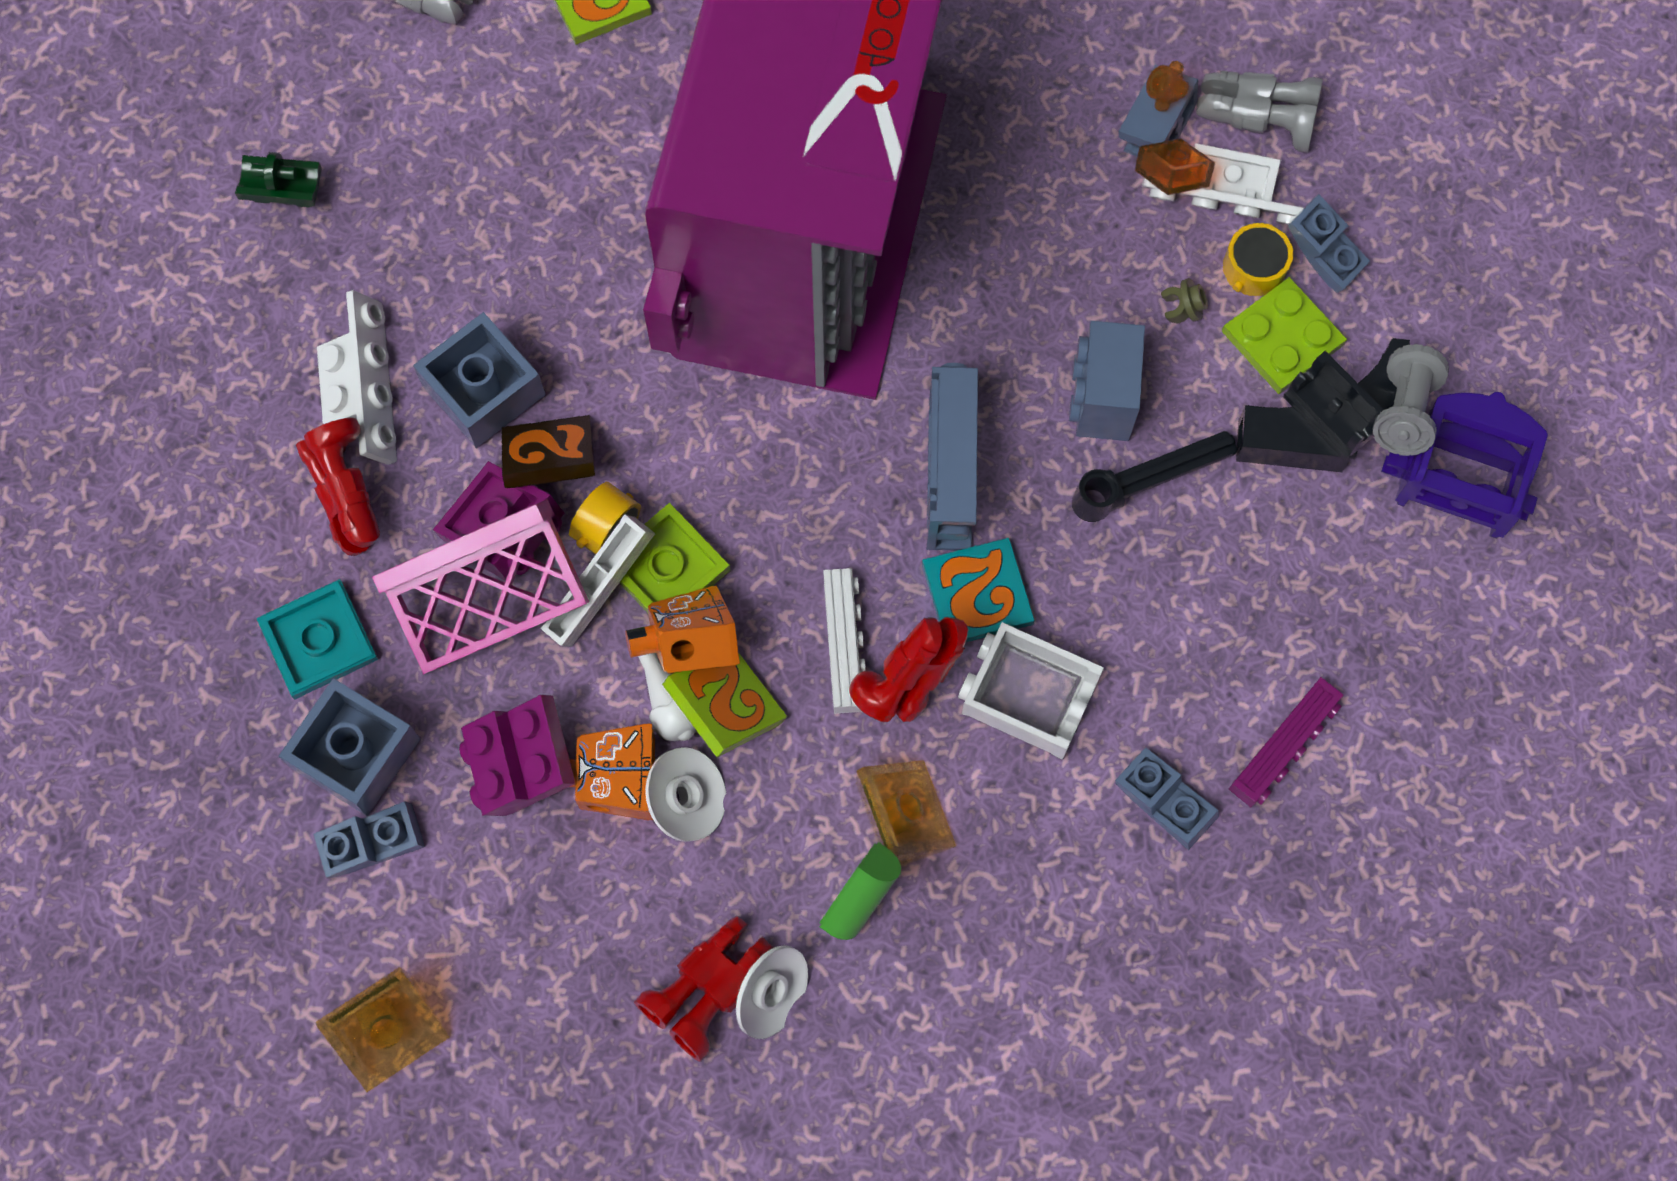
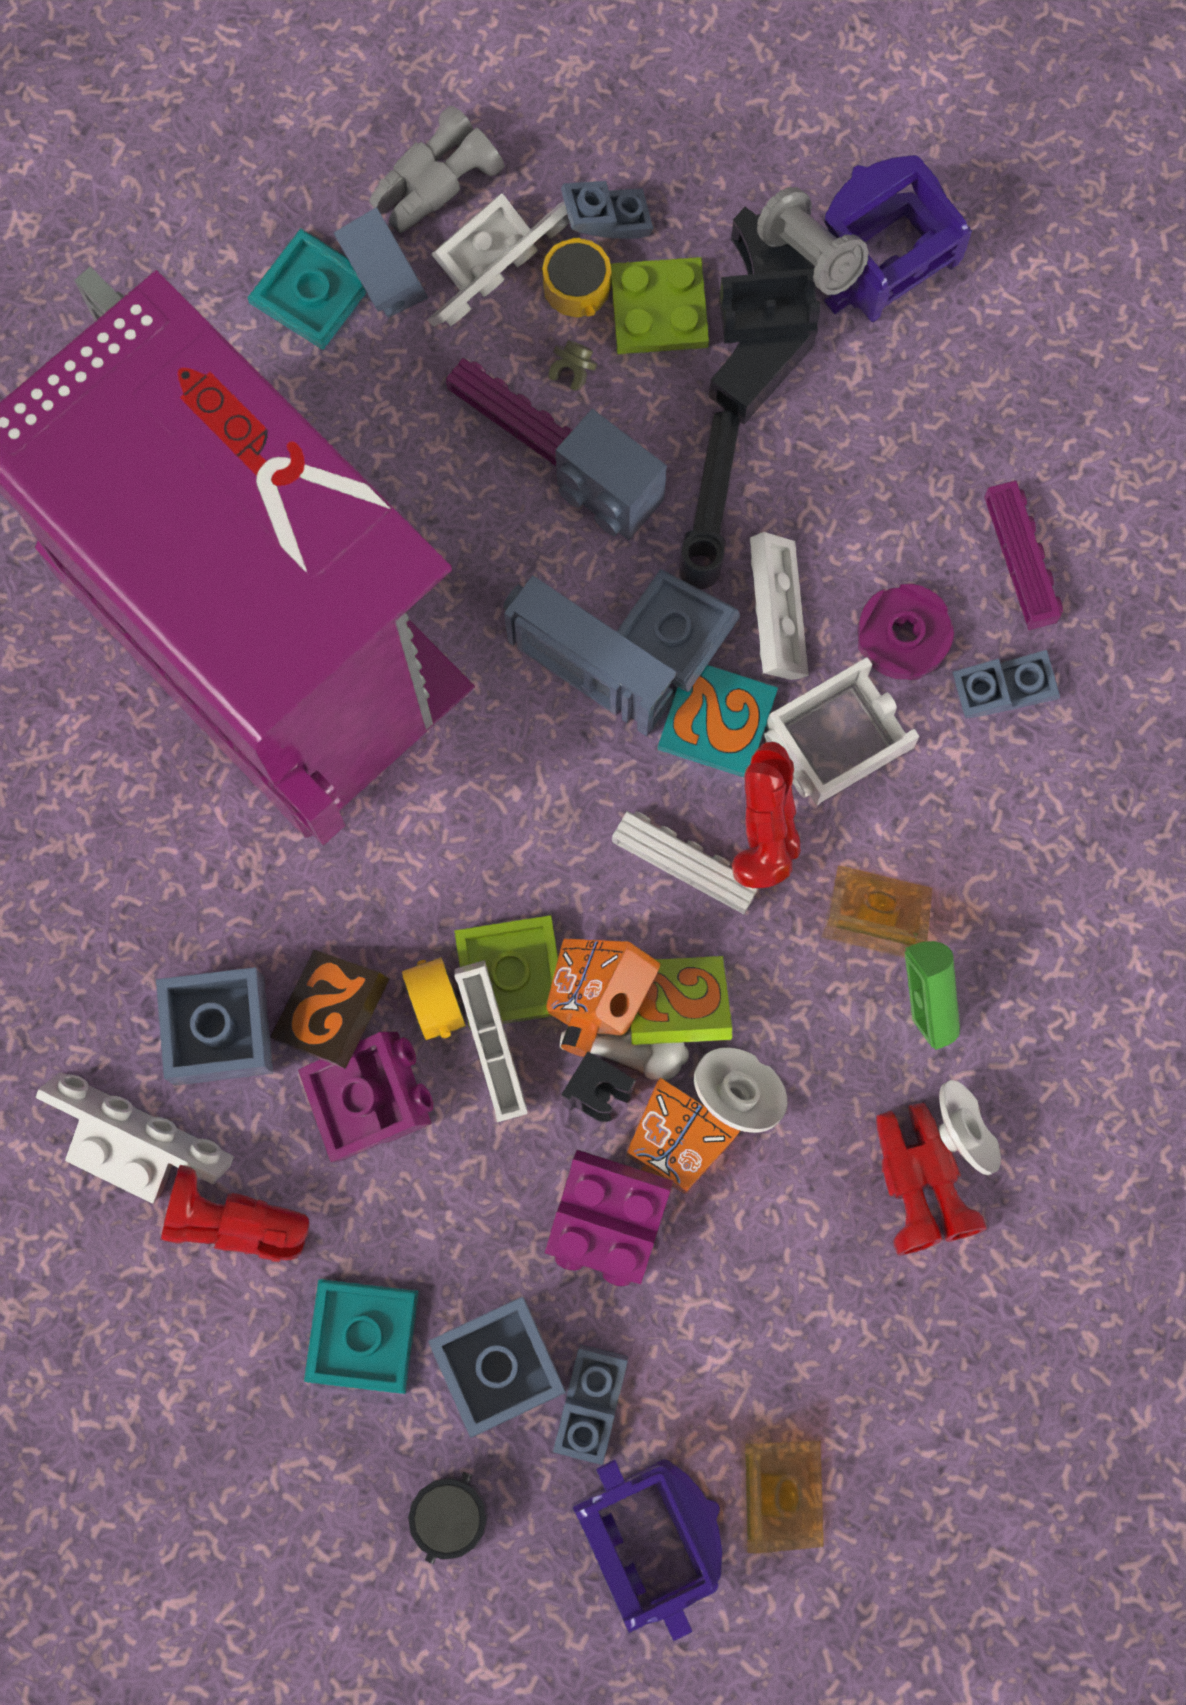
camera: 55 degrees left, 5 degrees up
(215, 787) = (448, 1518): none -> pearl dark grey piece
(317, 972) = (696, 1526): none -> dark purple animal
(466, 550) = (385, 1138): fence -> none
(610, 674) = (592, 1086): none -> black hinge
(1024, 513) = (679, 626): none -> sand blue tile
(1101, 80) = (309, 289): none -> teal tile
(1101, 578) = (778, 606): none -> white plate
(1112, 270) = (507, 409): none -> magenta piece
(1167, 85) = (359, 240): clear orange plate -> none
(1169, 671) = (894, 607): none -> magenta plate
(1174, 166) = (448, 283): clear orange piece -> none

